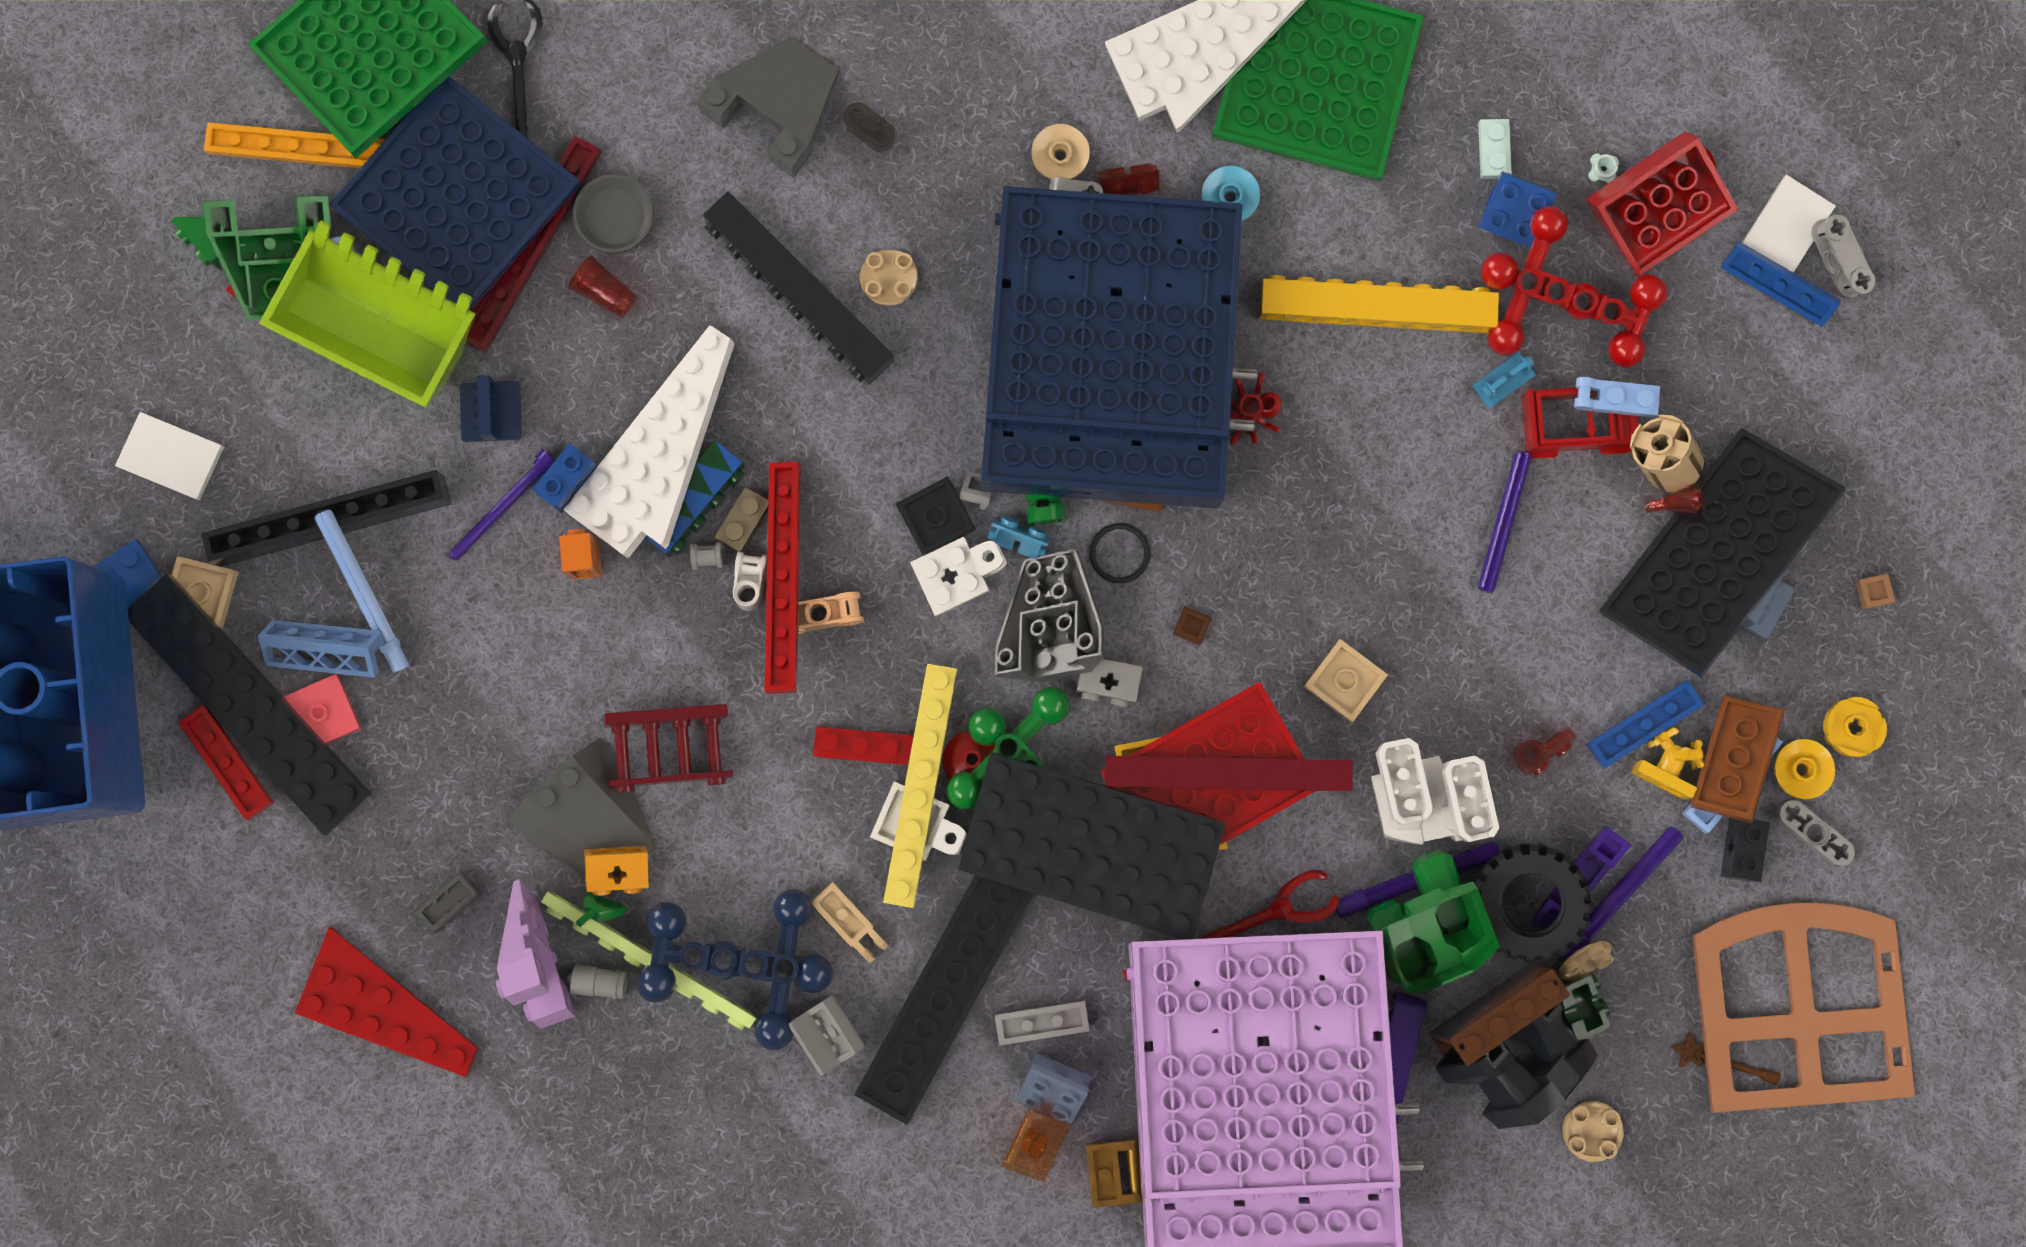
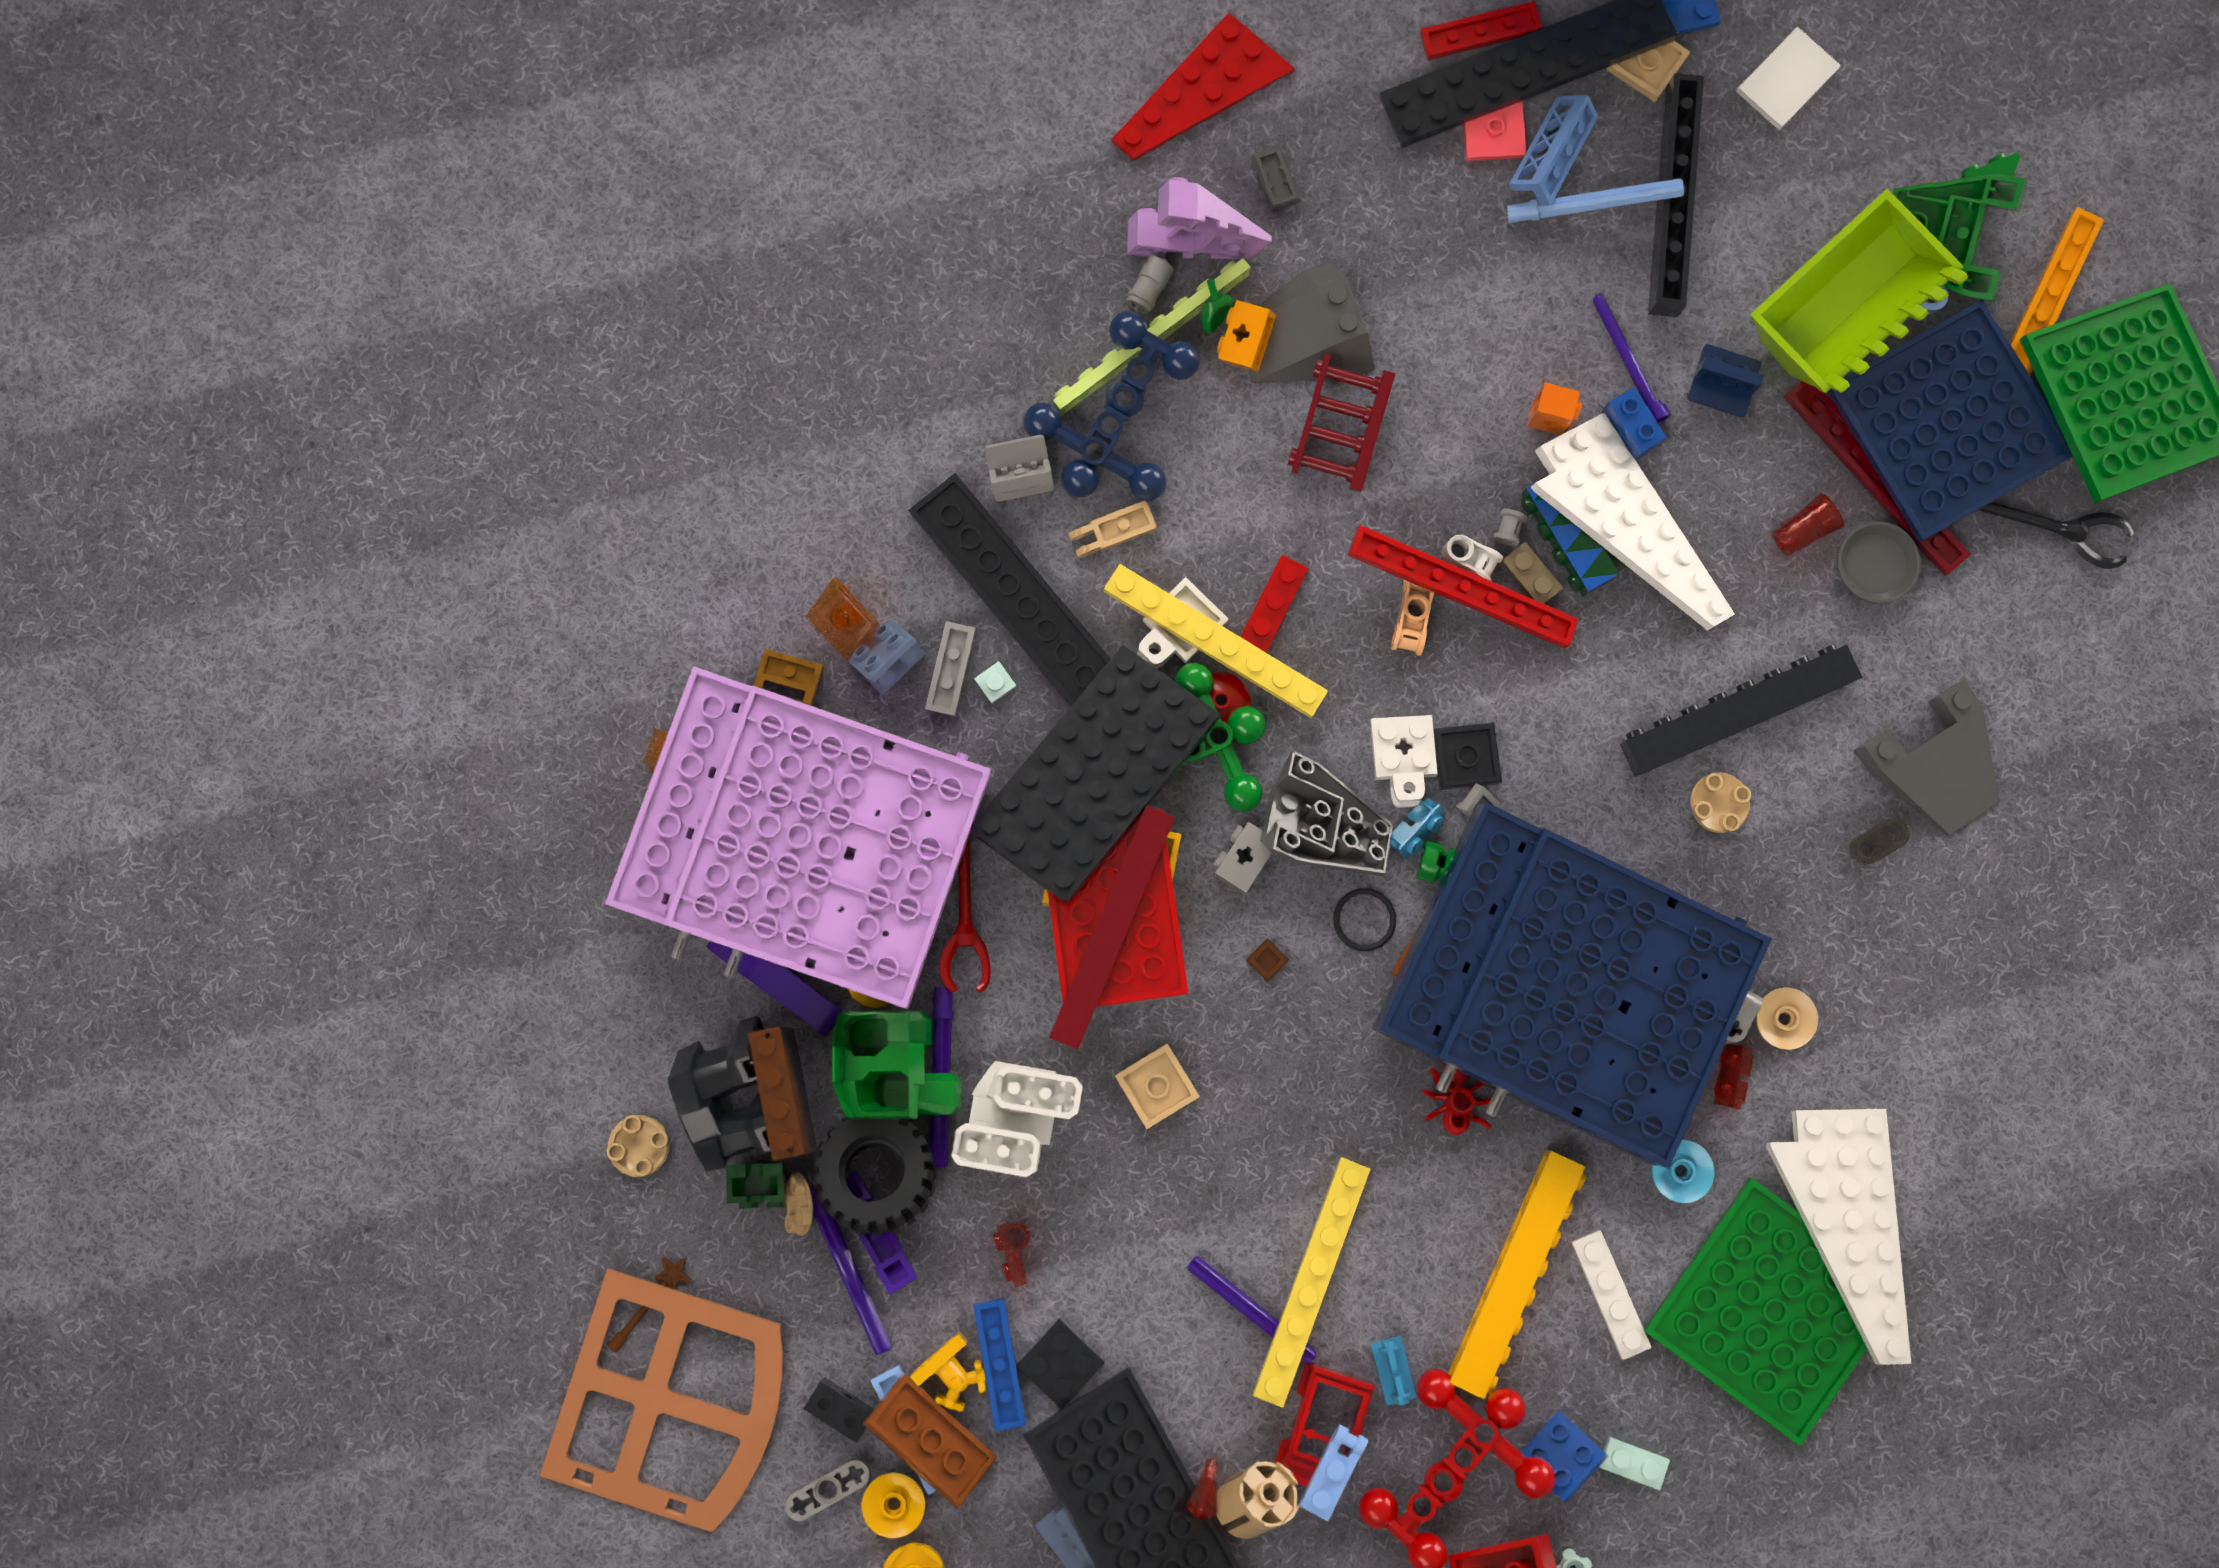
camera: 115 degrees right, 0 degrees up
(1037, 975) = (995, 682): none -> light aqua plate
(1360, 219) = (1611, 1294): none -> white plate
(1459, 478) = (1311, 1282): none -> light yellow plate
(1621, 671) = (1060, 1363): none -> black plate

